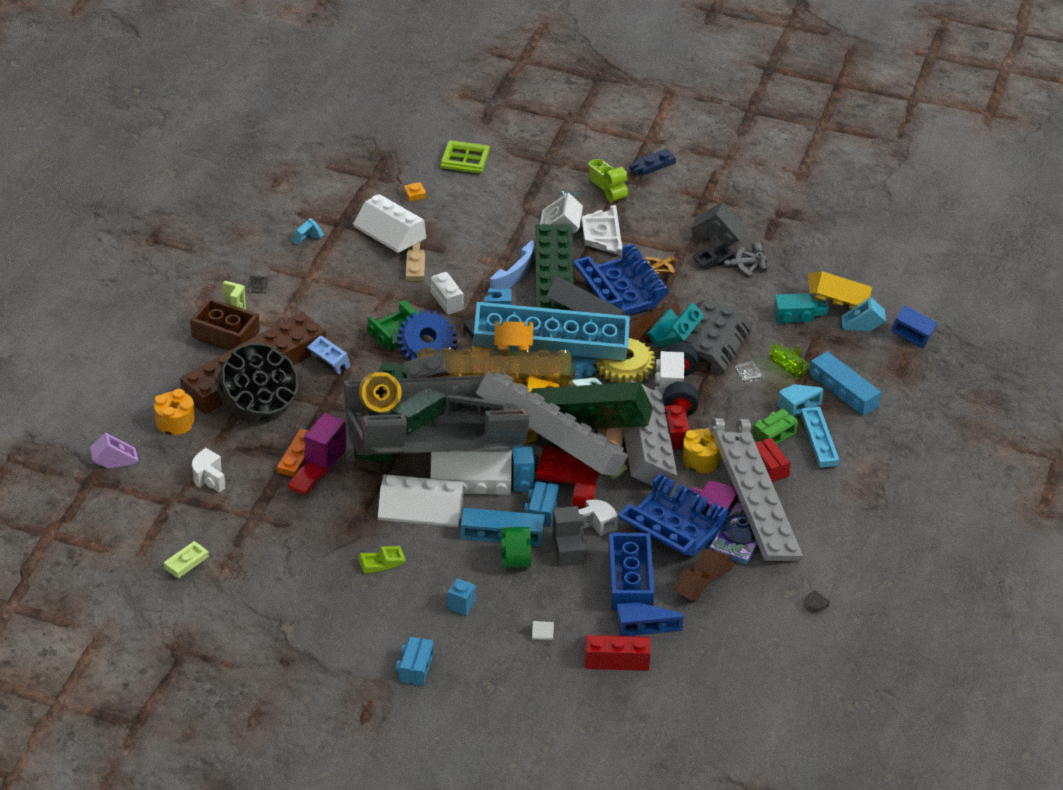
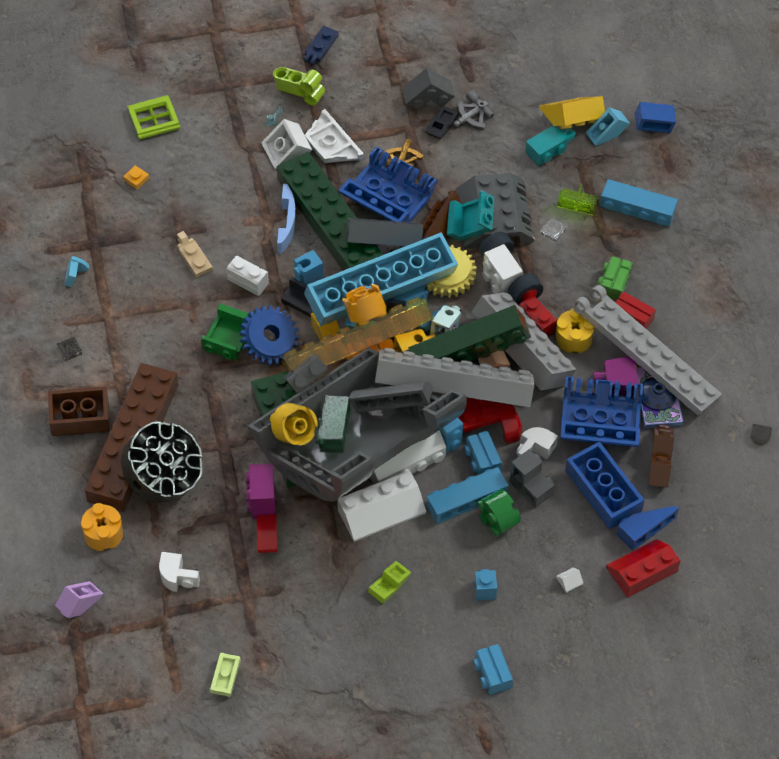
camera: 30 degrees left, 15 degrees up
(234, 294) = (67, 377): yellowish green panel -> none
(294, 456) = (237, 510): orange plate -> none
(330, 353) = (192, 393): light blue hinge -> none
(390, 223) = (145, 226): white slope -> none
(798, 397) = (613, 238): medium azure slope -> none
(819, 437) = (654, 267): medium azure plate -> none

